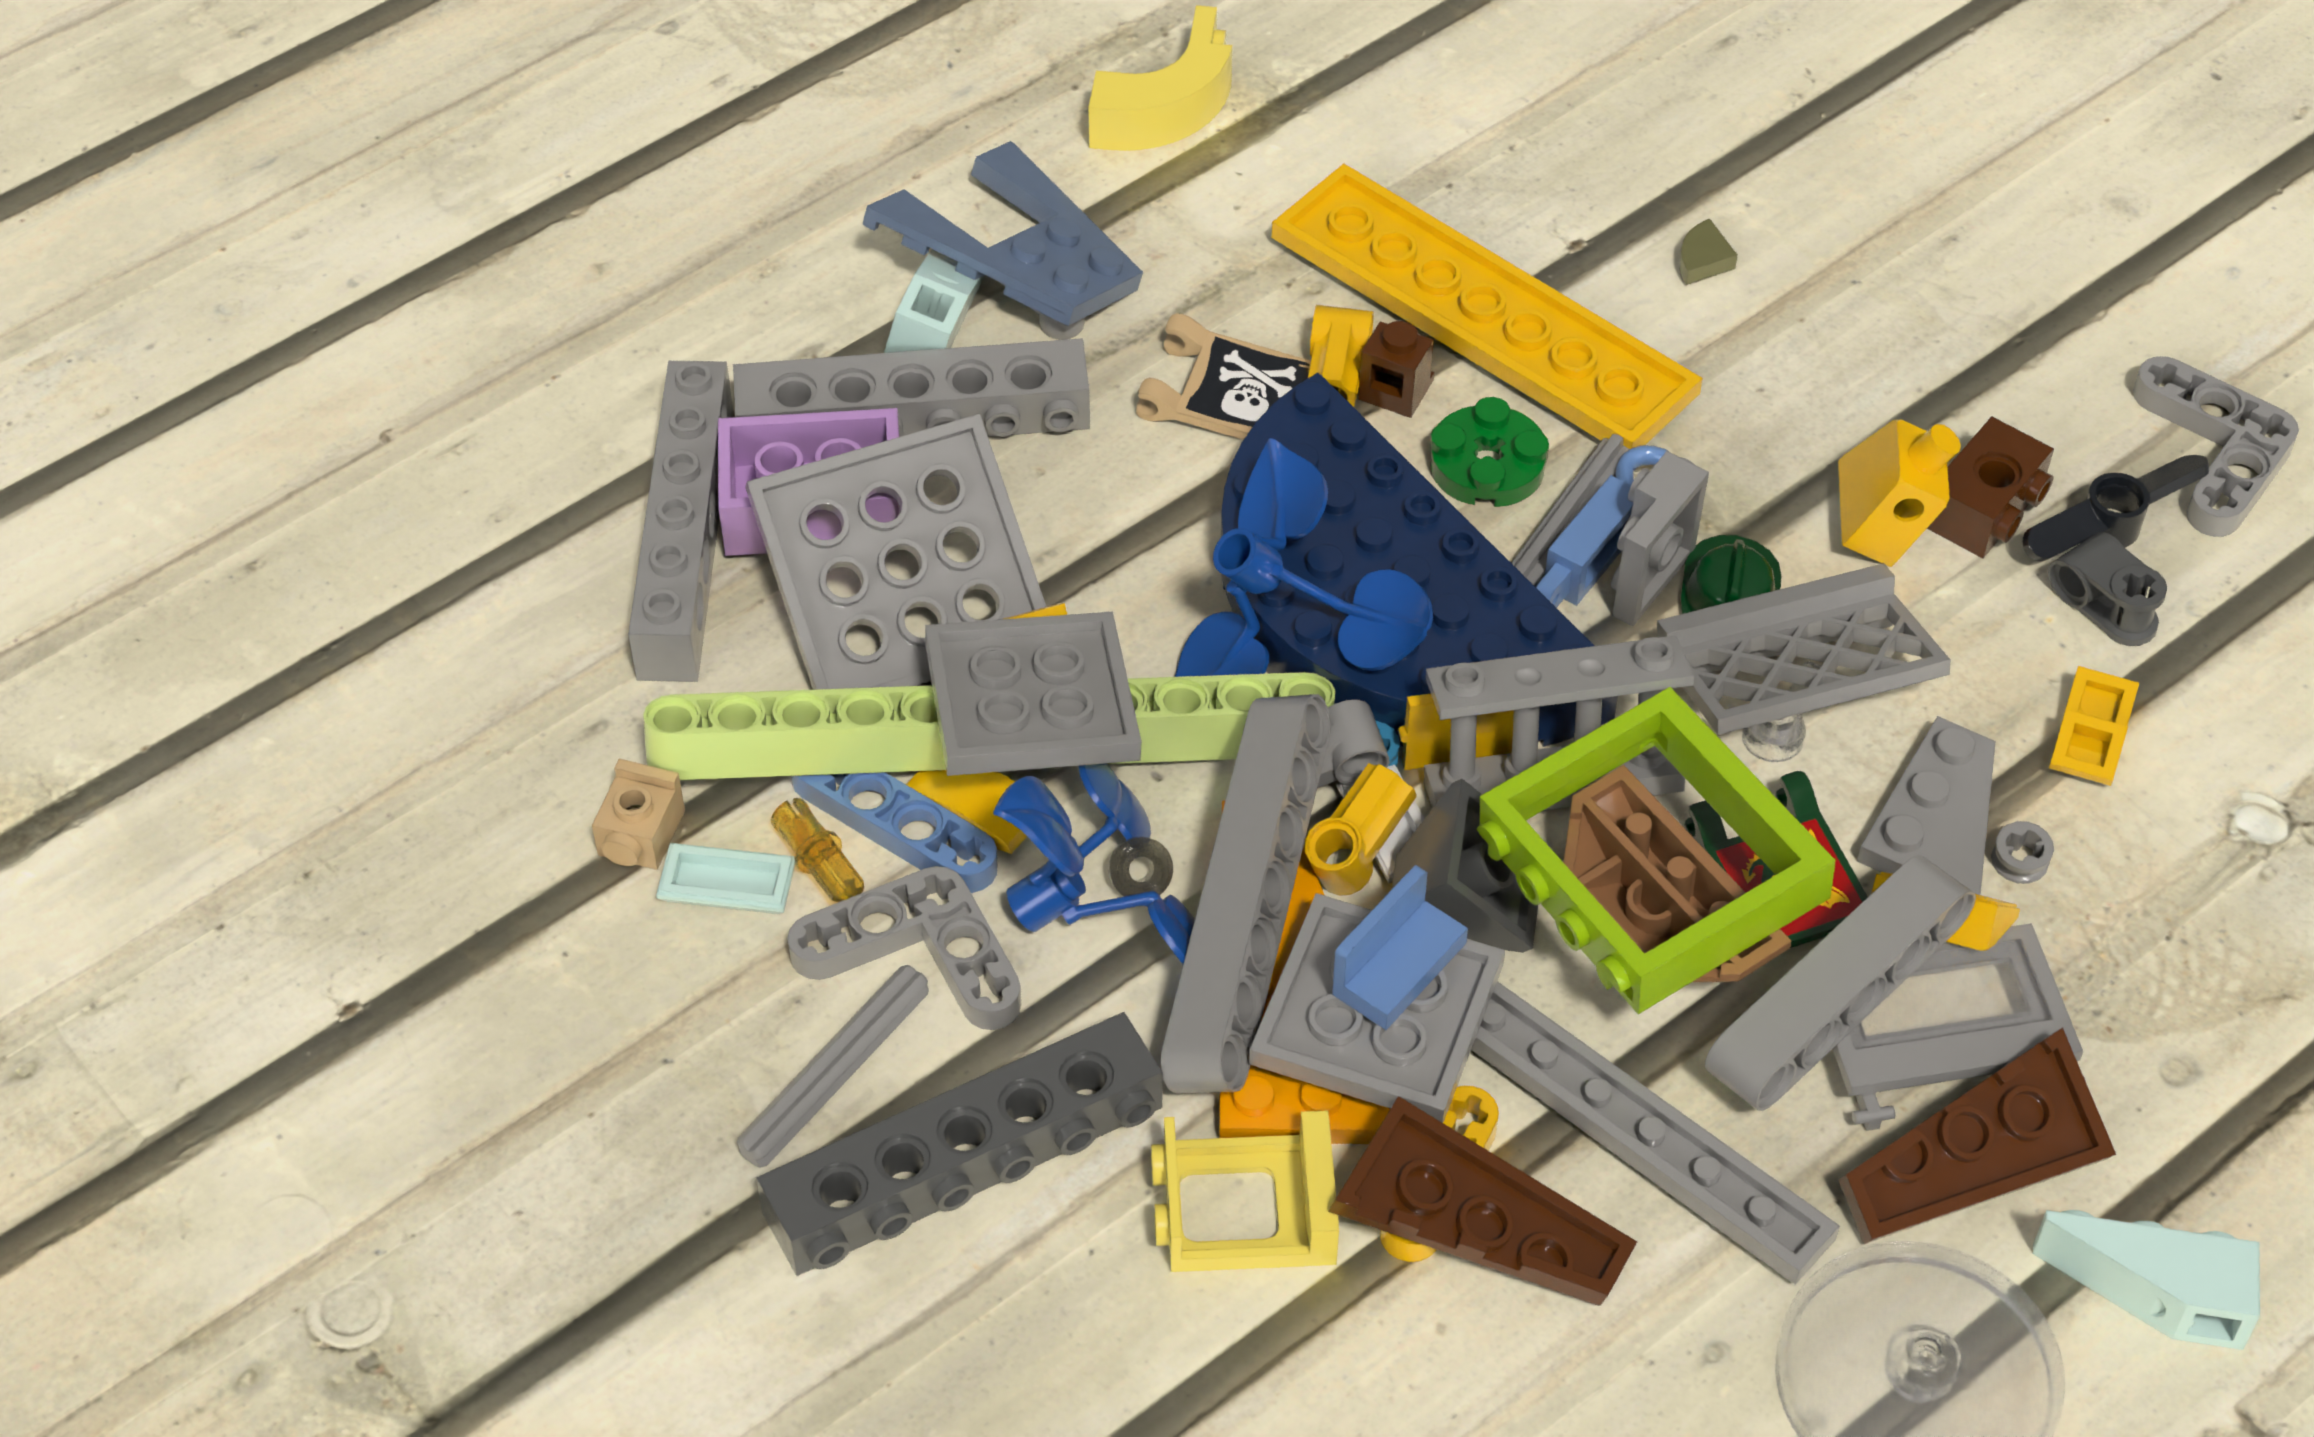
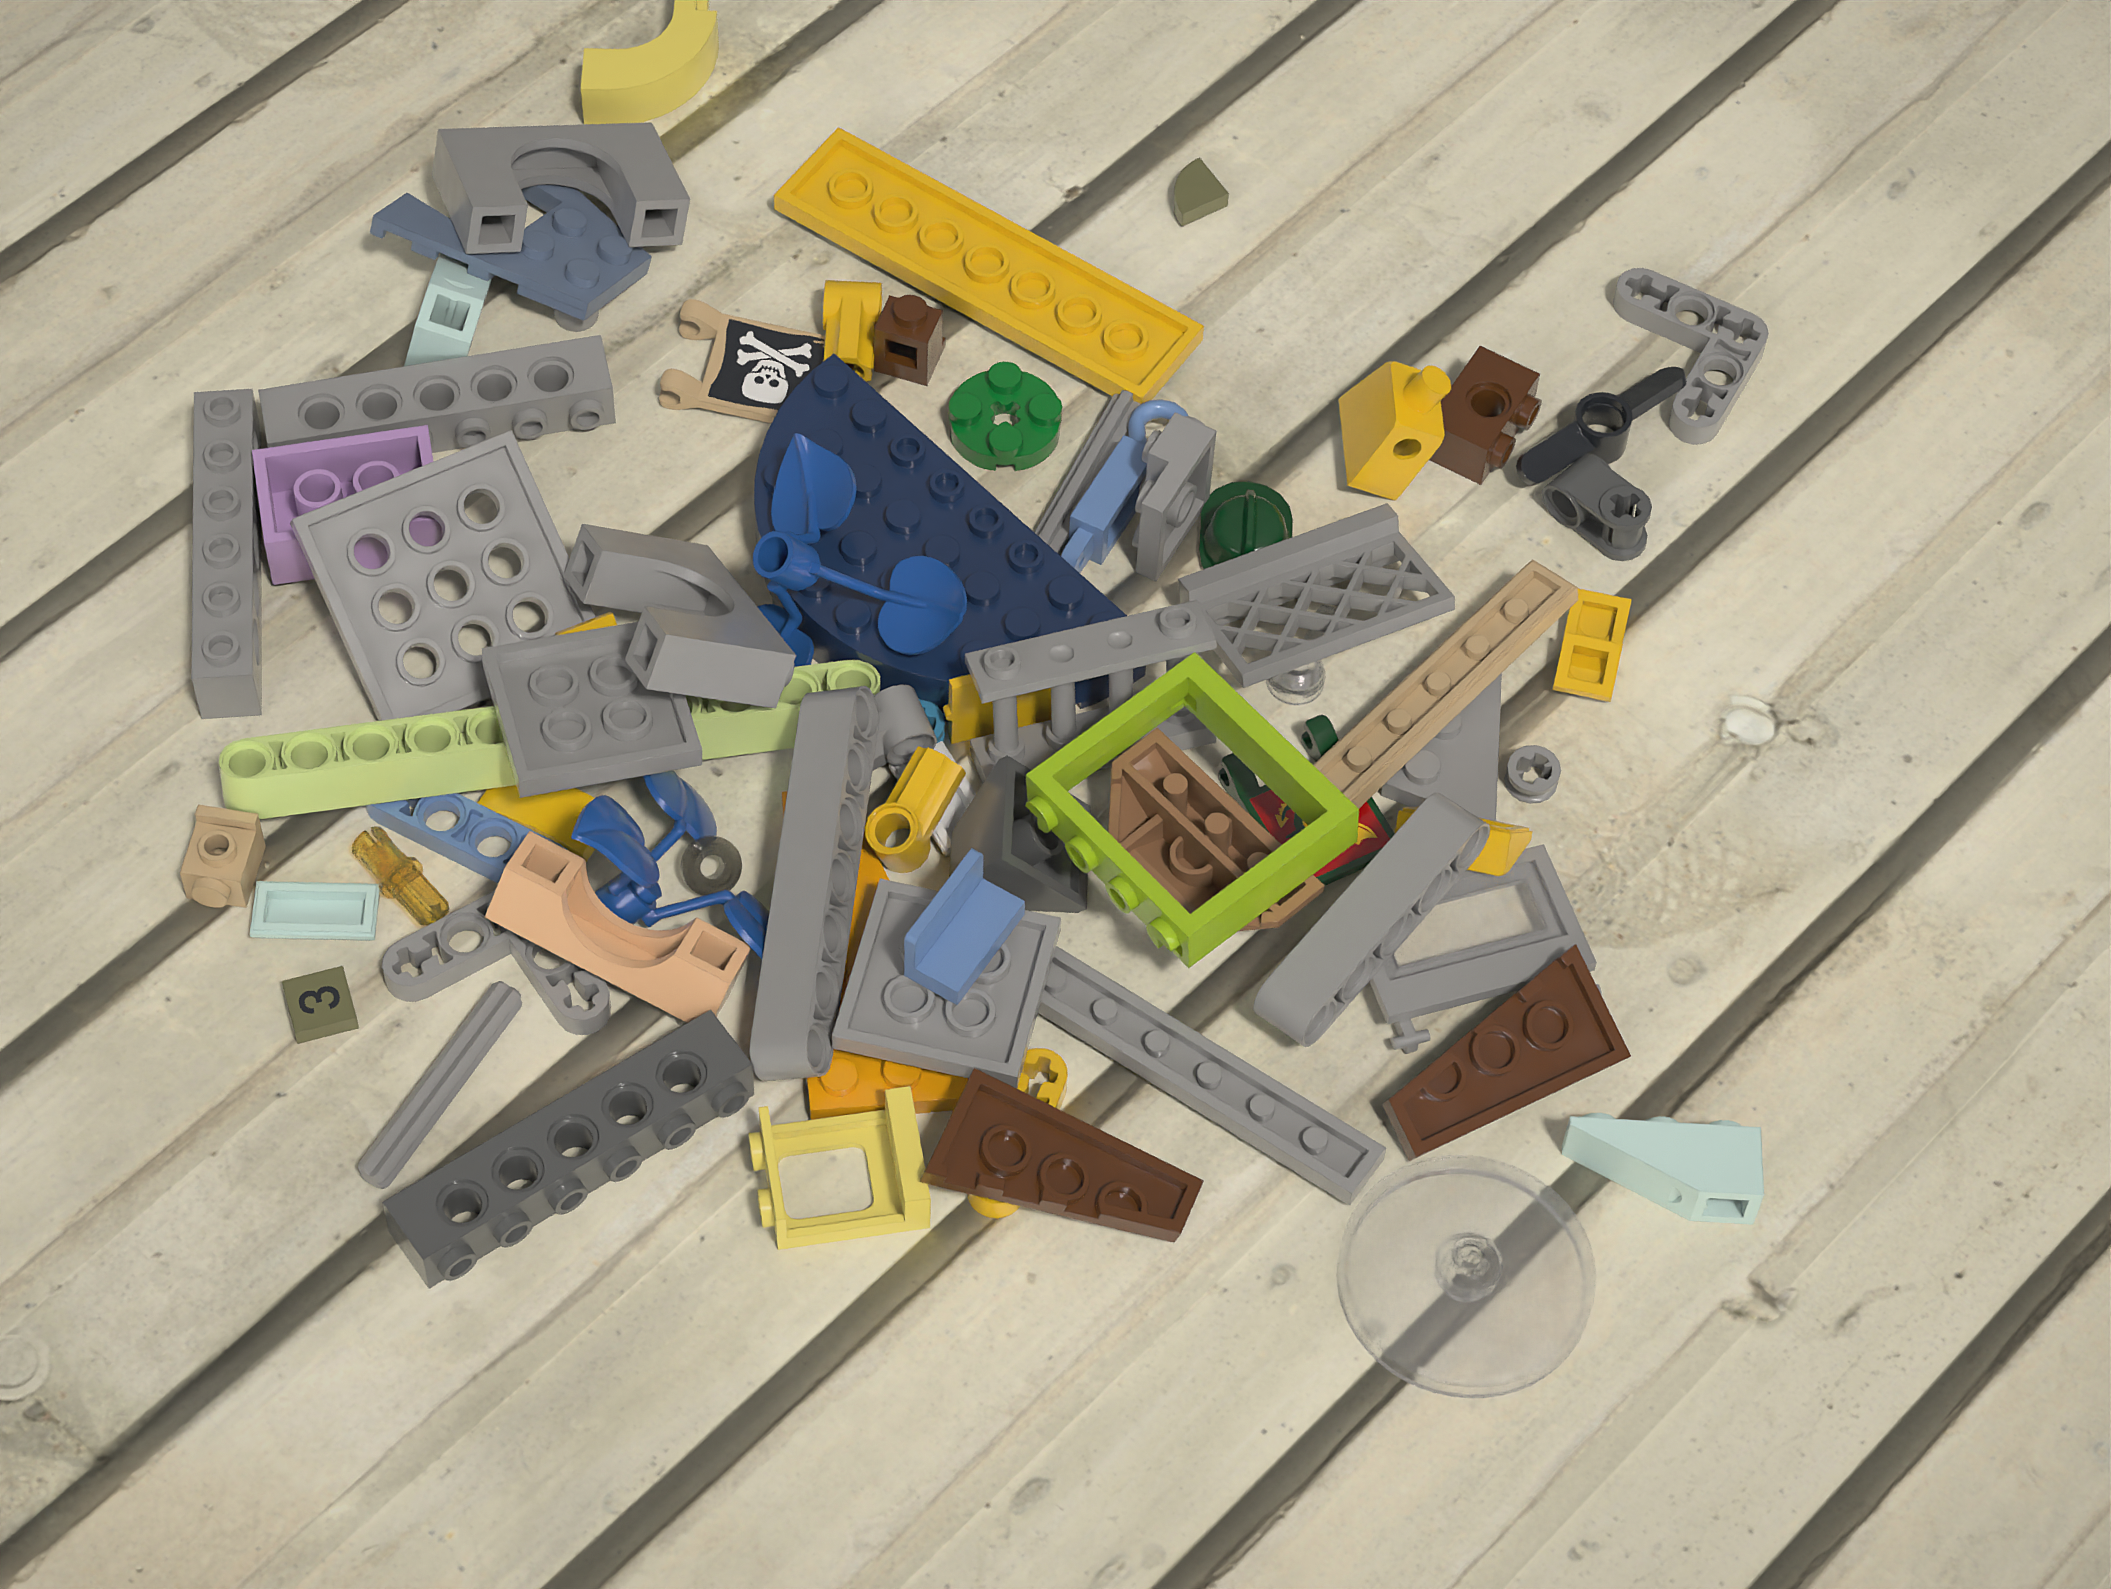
camera: 10 degrees left, 5 degrees up
(719, 972) = (320, 1004): none -> olive tile
(968, 887) = (552, 904): none -> light nougat arch
(1122, 182) = (618, 163): none -> light grey arch
(1143, 612) = (696, 620): none -> light grey arch
(1939, 745) = (1446, 682): none -> tan tile

